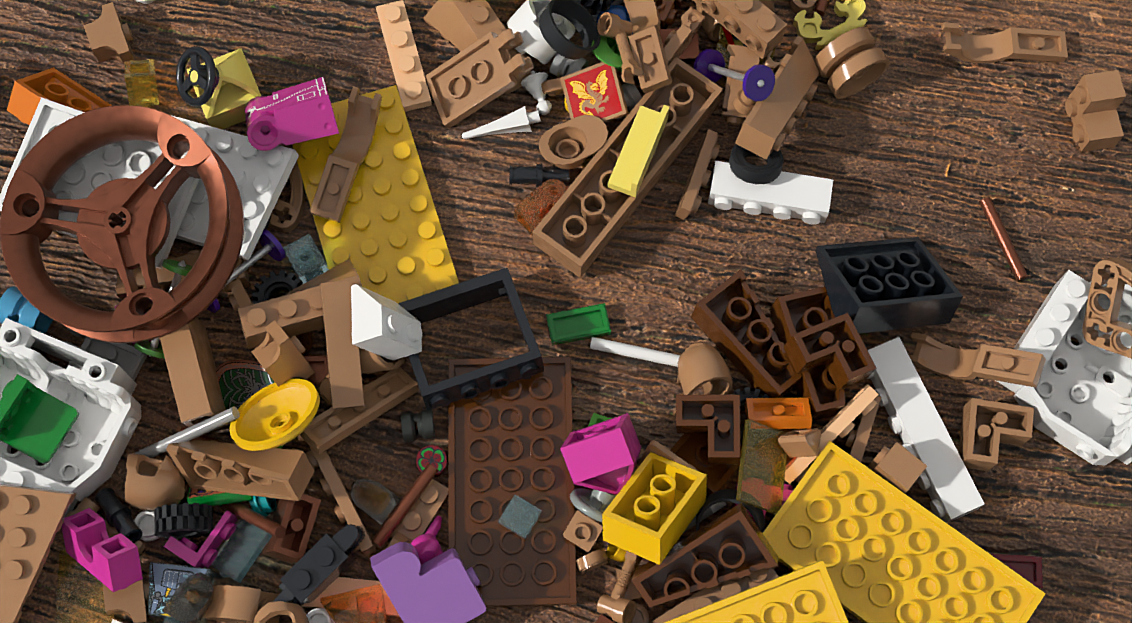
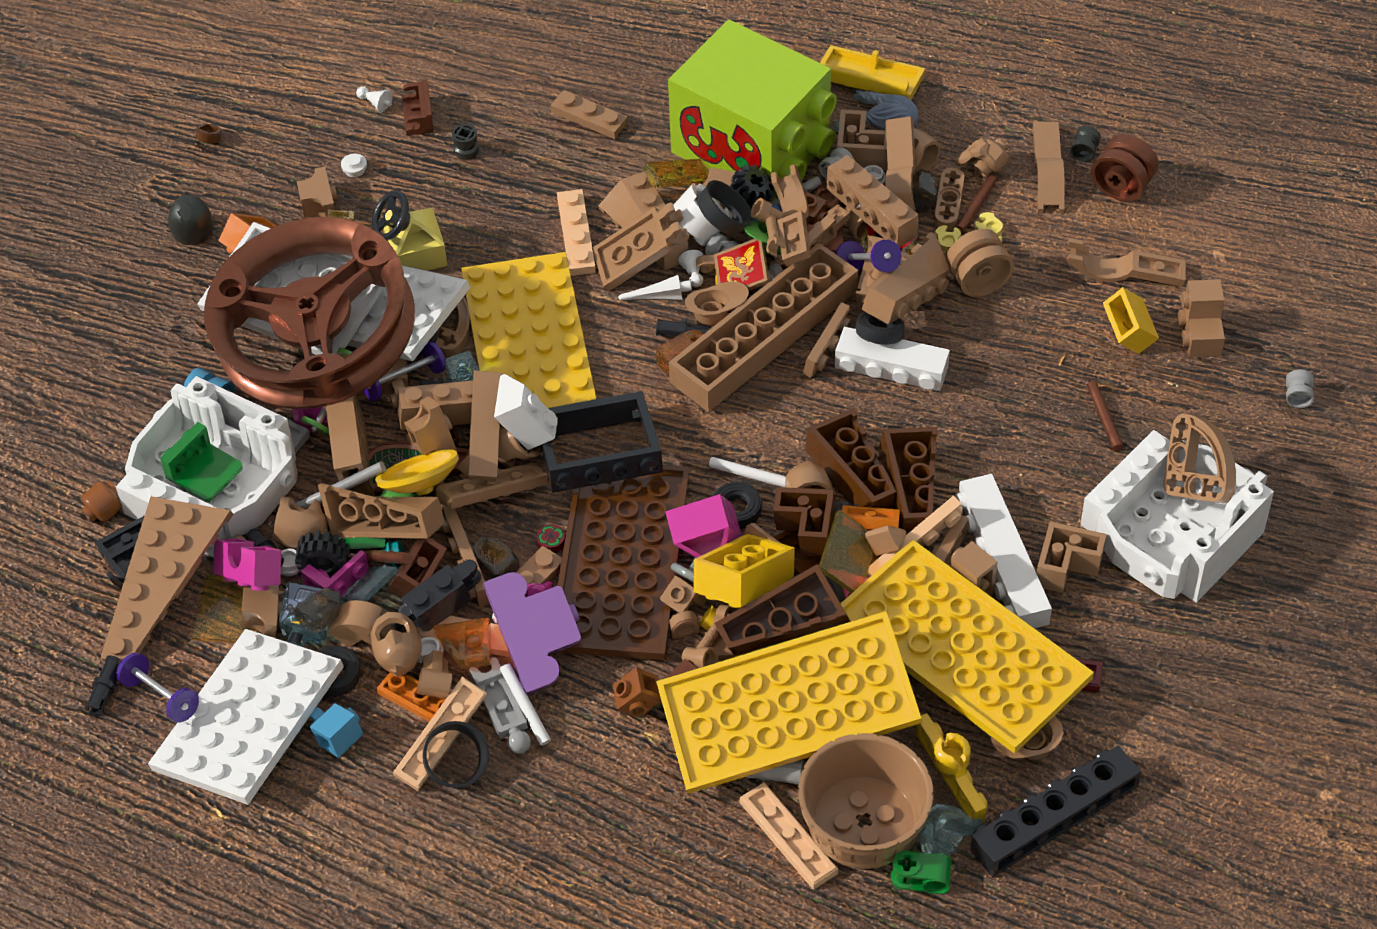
camera: 10 degrees right, 20 degrees down
(290, 116) = (469, 255): dark pink piece -> none
(347, 157) = (508, 302): medium nougat piece -> none
(405, 505) = (527, 557): copper bar -> none
(425, 425) = (549, 507): pearl dark grey wheel -> none
(519, 516) = (623, 580): clear light blue tile -> none
(578, 324) = (701, 447): green tile -> none
(627, 378) = (749, 494): none -> black tyre
(638, 150) = (774, 306): light yellow panel -> none
(836, 346) = (924, 461): reddish brown brick -> none
(887, 284) = (986, 434): black slope -> none
(985, 362) = (1070, 495): medium nougat piece -> none
(1019, 119) = (1130, 320): none -> yellow brick

